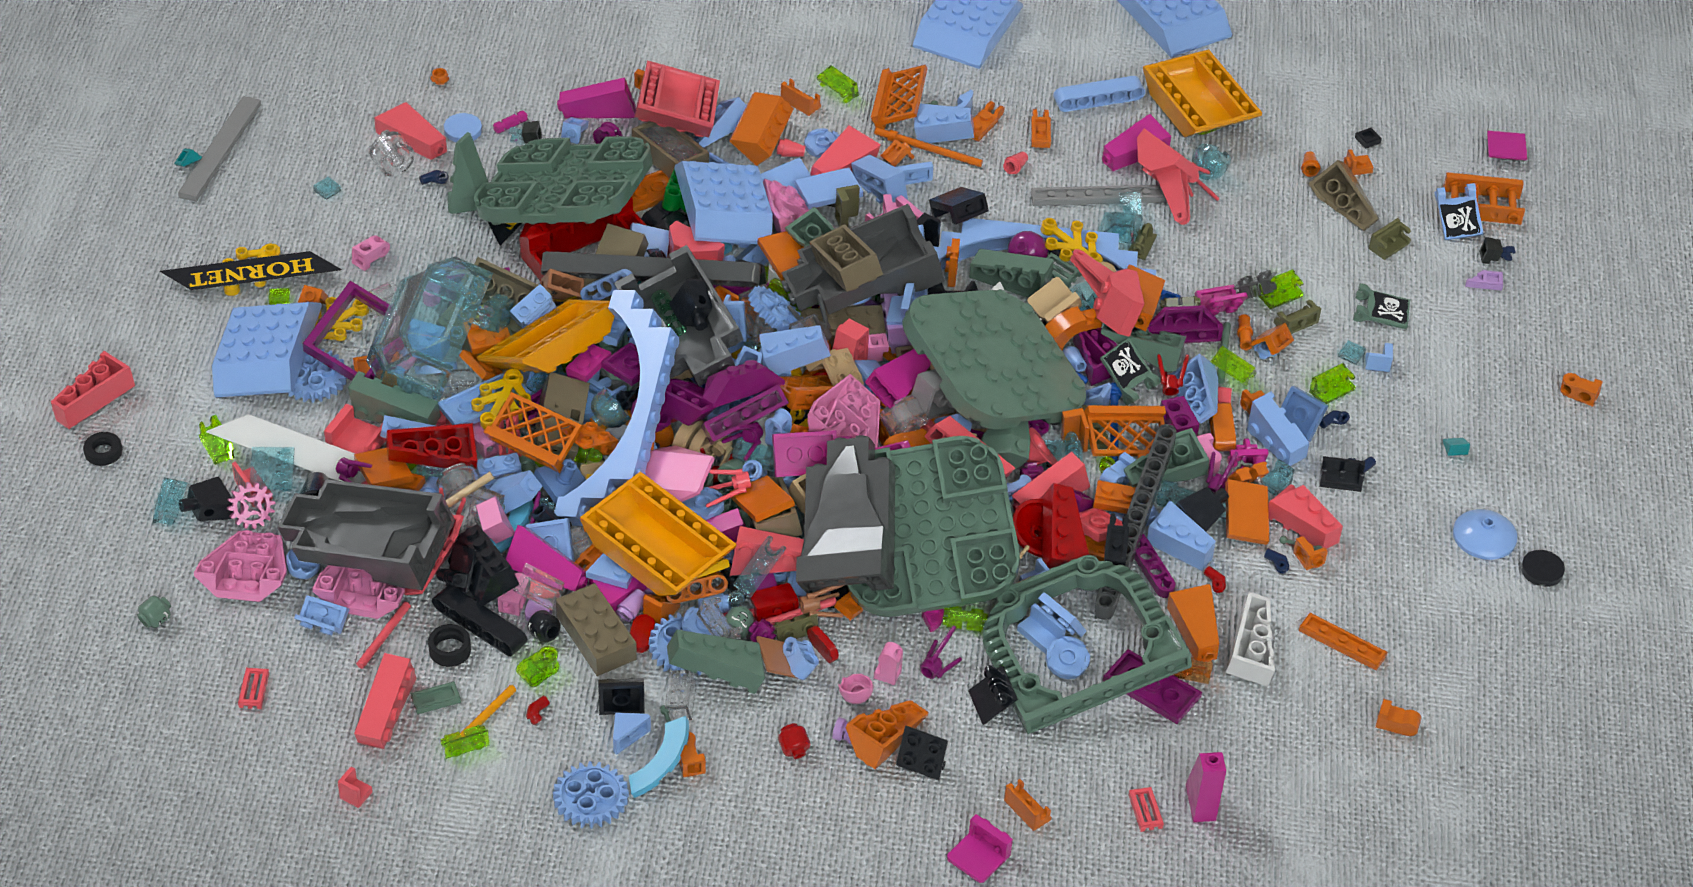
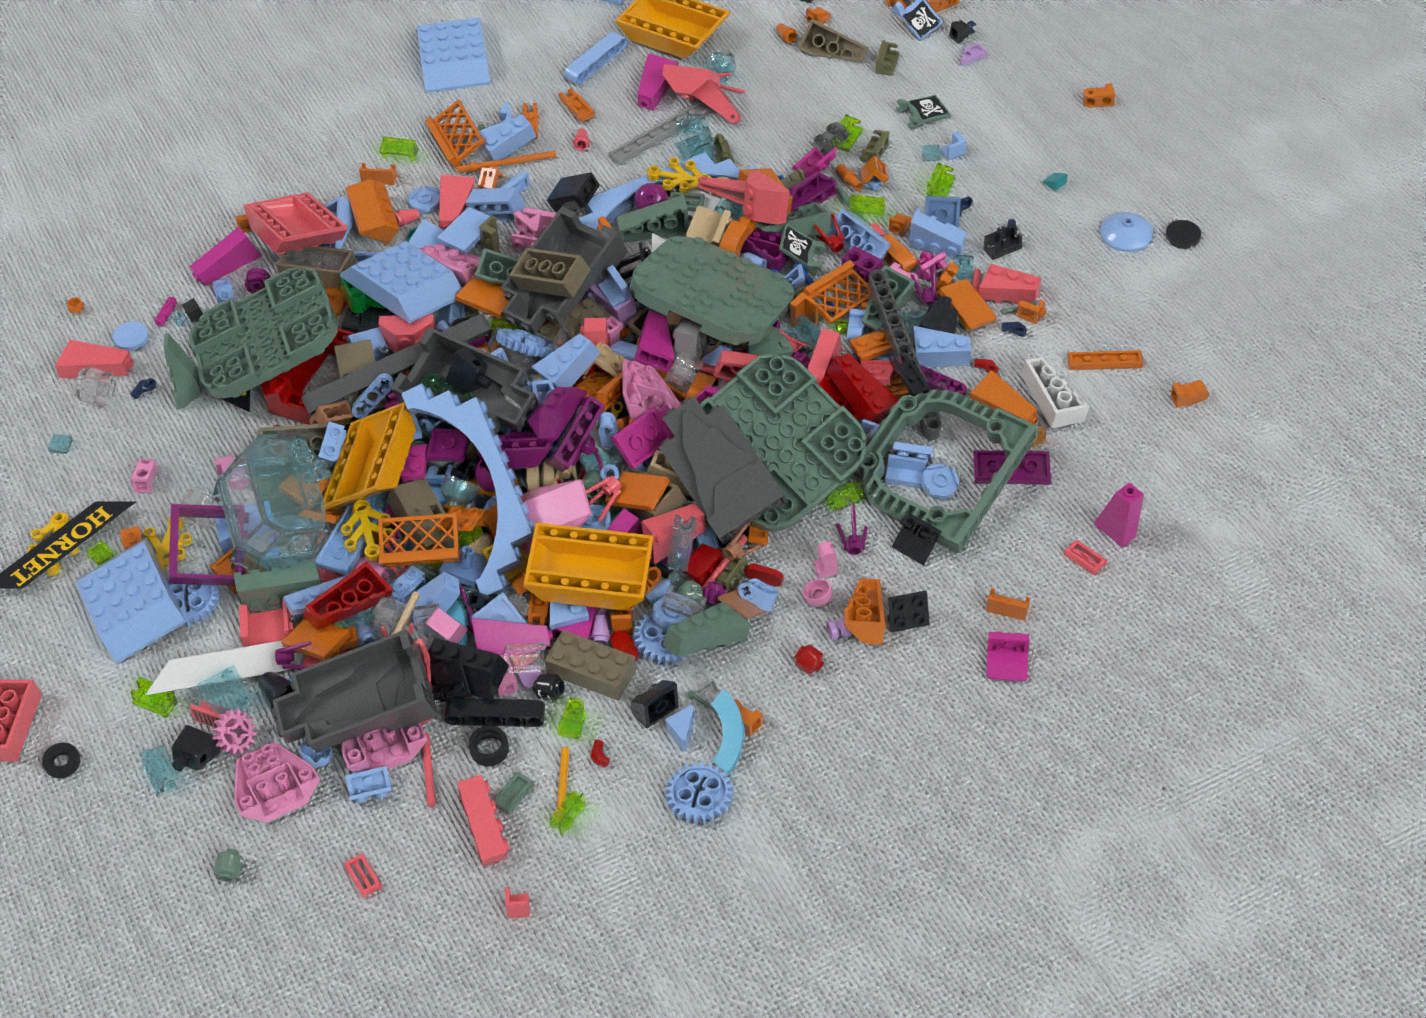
camera: 30 degrees left, 5 degrees up
(933, 619) = (822, 510): dark pink tile -> none

